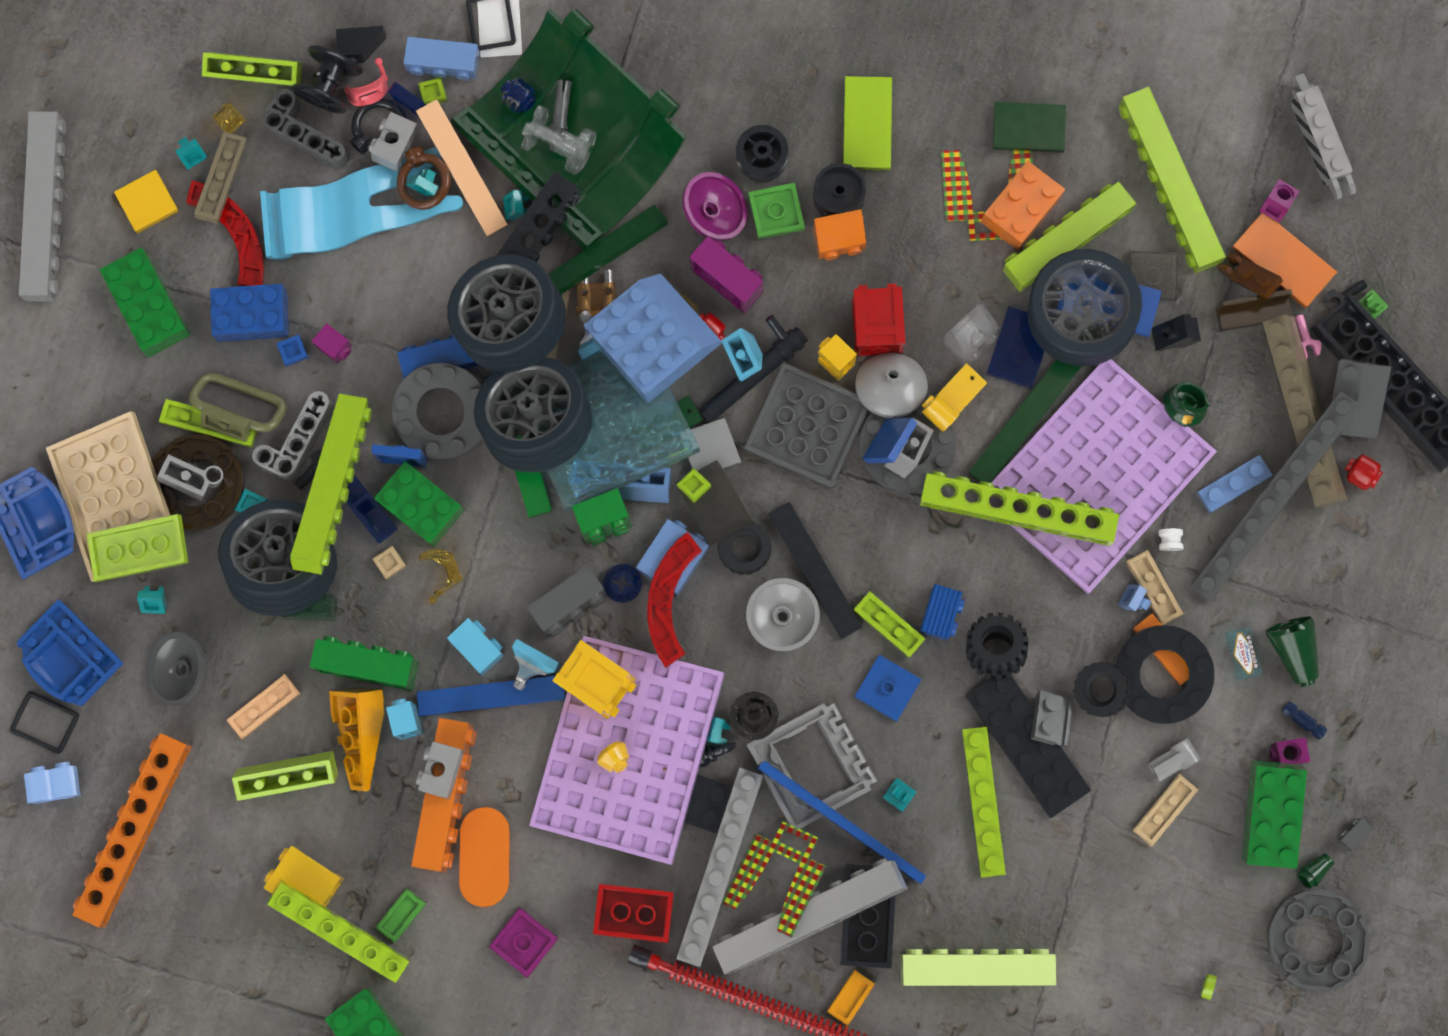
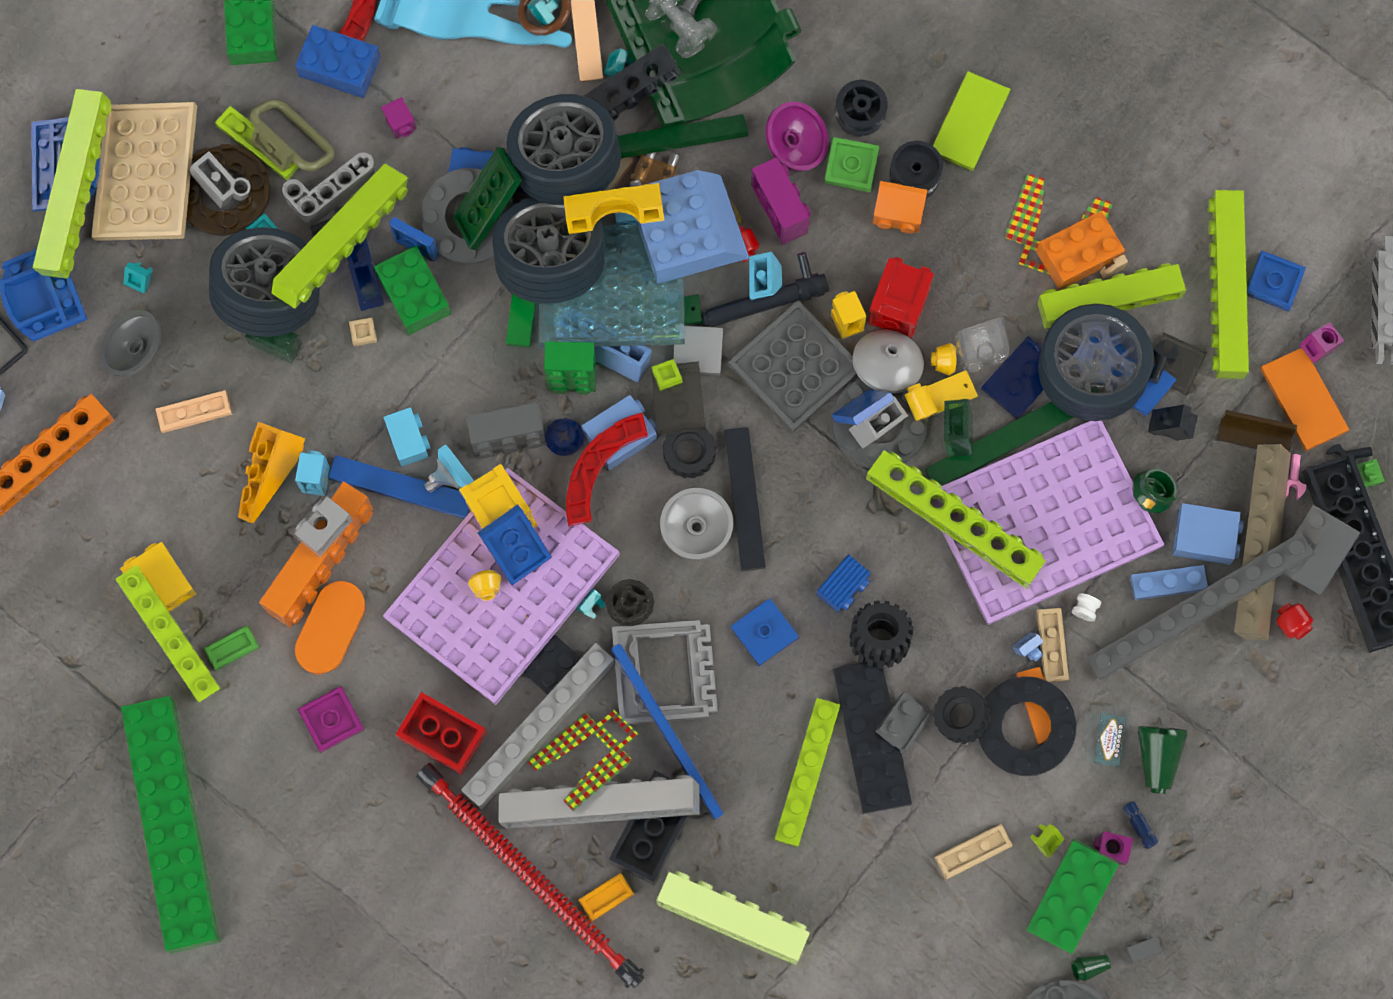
camera: 20 degrees right, 5 degrees down
(50, 539) = (72, 184): none -> lime brick
(137, 548) = (145, 223): lime plate -> none
(285, 775) = (184, 478): lime brick -> none
(292, 350) = (361, 110): blue plate -> none
(364, 664) = (299, 409): green brick -> none
(446, 560) = (415, 350): clear yellow helmet -> none
(454, 389) = (487, 198): none -> dark green tile
(603, 335) = (586, 209): none -> yellow arch
(626, 710) = (514, 544): none -> blue tile
(711, 754) = (575, 623): black bar -> none
(889, 624) = (791, 575): lime plate -> none
(899, 794) = (732, 733): teal tile -> none
(942, 361) = (944, 359): none -> yellow cone
(984, 421) = (958, 427): none -> clear green brick
(1029, 127) = (1118, 184): dark green tile -> none
(1062, 205) = (1119, 265): none -> tan tile
(1142, 276) = (1162, 359): none -> black bar
(1179, 757) = (1008, 808): light grey piece -> none
(1211, 158) = (1275, 280): none -> blue tile
(1229, 770) = (1048, 840): none -> lime tile
(1250, 424) = (1207, 534): none -> medium blue brick
(1251, 276) = (1265, 398): reddish brown hinge -> none

